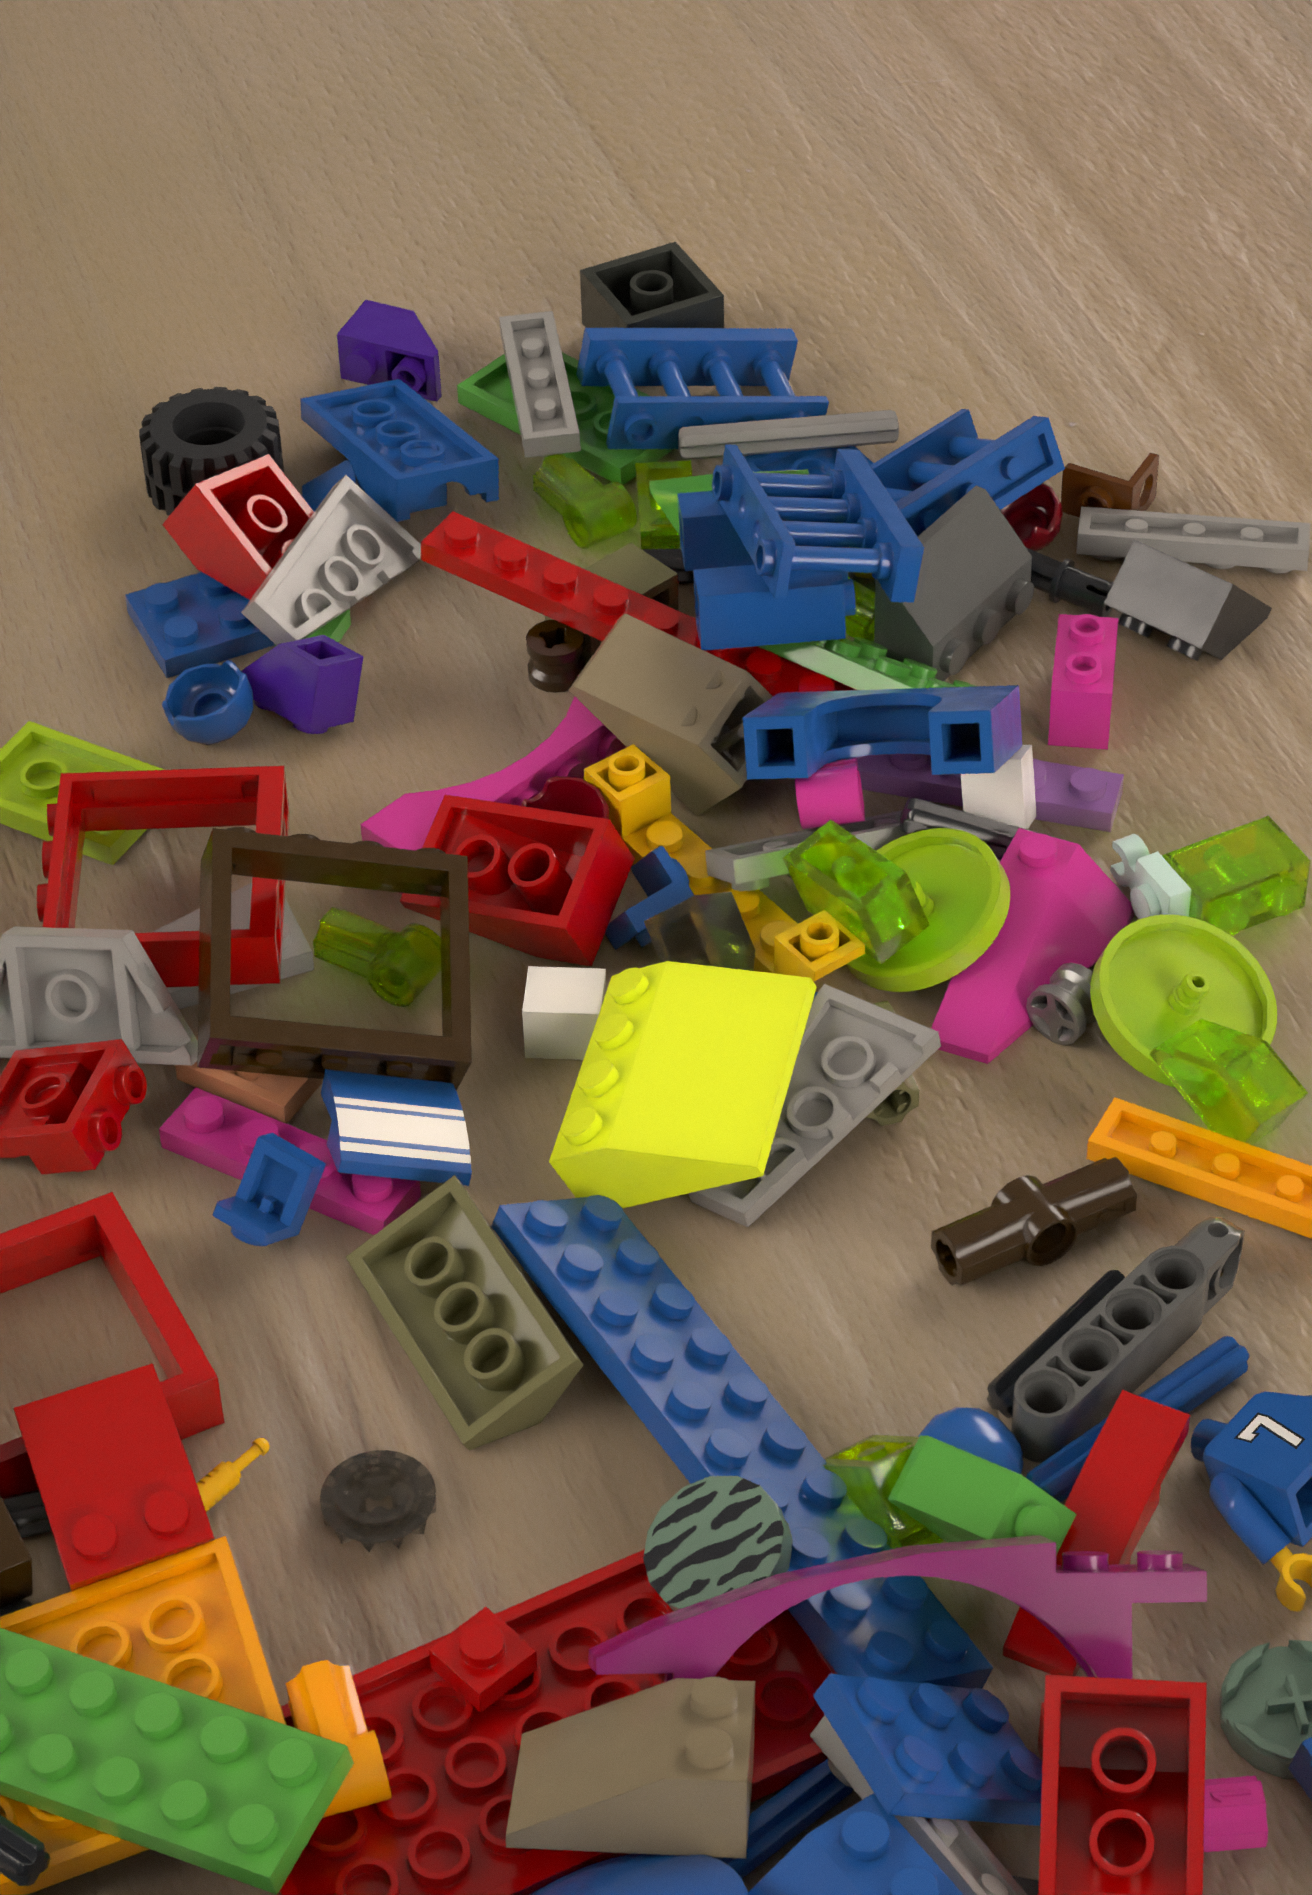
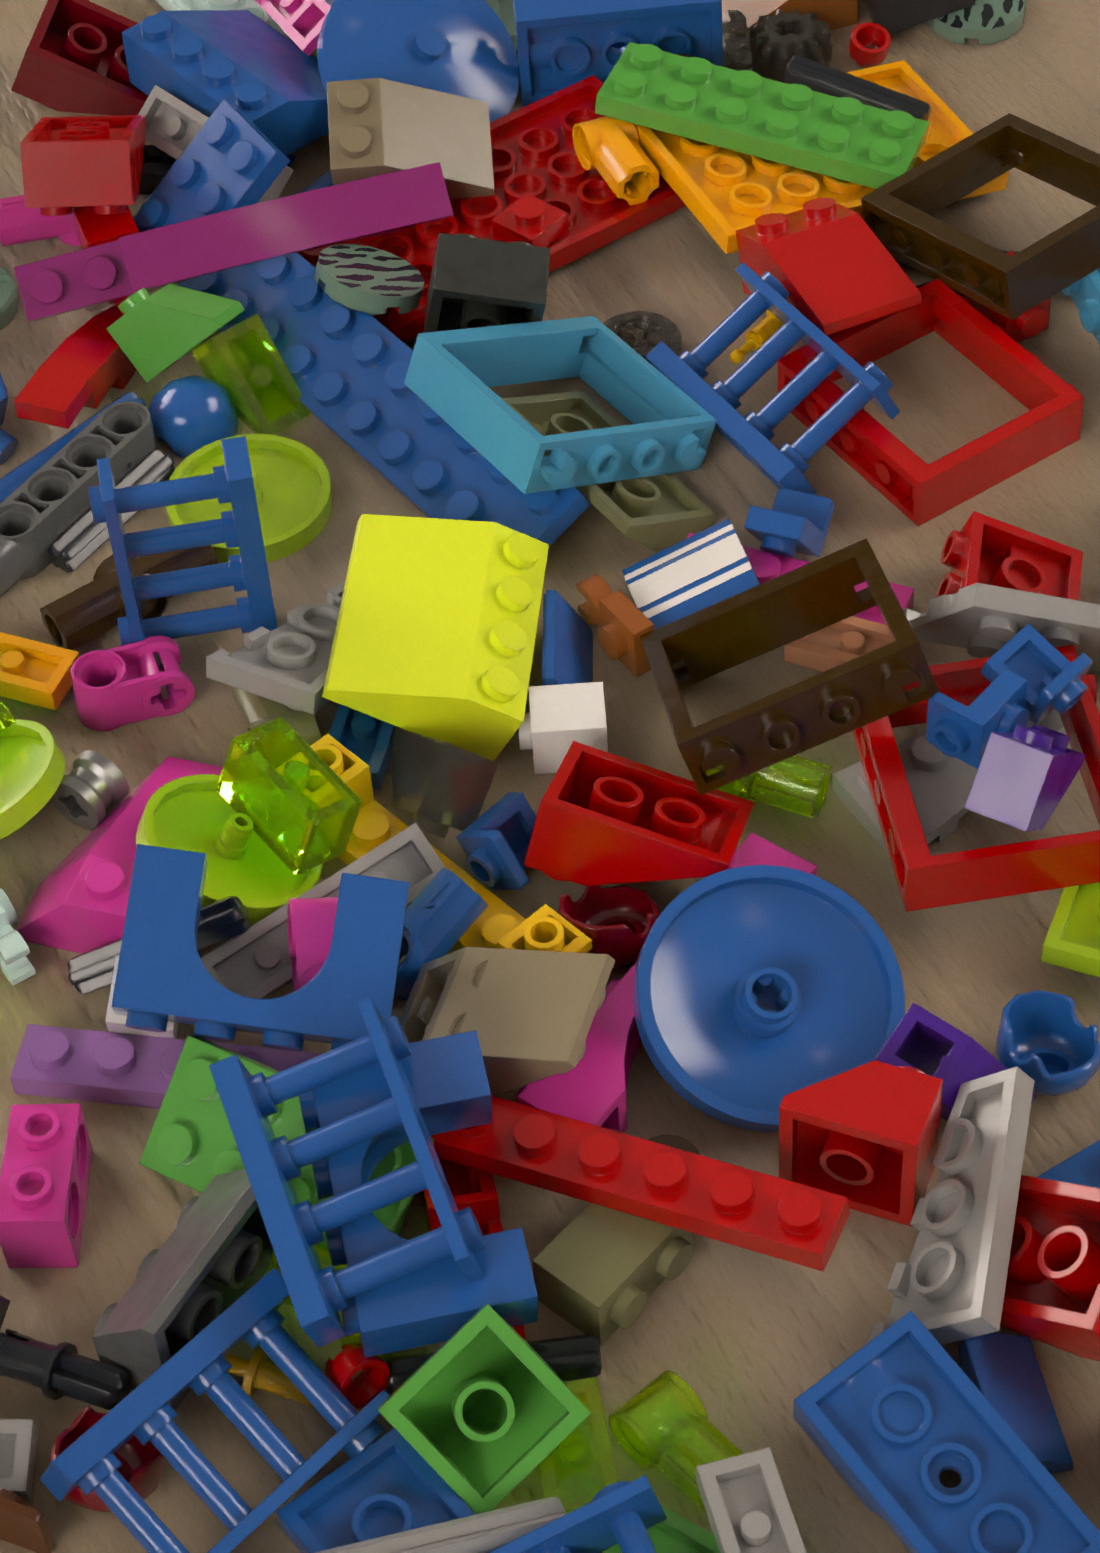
camera: 175 degrees right, 5 degrees up
(89, 881) = (1050, 677): none -> blue bracket
(148, 795) = (1024, 776): none -> slope
(161, 848) = (965, 730): none -> blue bracket
(272, 1308) = (753, 432): none -> blue fence
(395, 618) = (864, 1137): none -> red slope
(436, 734) = (763, 990): none -> blue dish
(487, 1112) = (617, 622): none -> dark orange plate
(551, 1092) = (566, 643): none -> blue slope
(552, 1394) = (458, 366): none -> dark azure window
(566, 1479) = (485, 283): none -> pearl dark grey brick
(737, 816) = (434, 925): none -> blue piece
(894, 1346) = (289, 489): none -> lime piece
(896, 1076) = (236, 528): none -> blue fence
(1033, 1109) = (125, 684): none -> dark pink piece

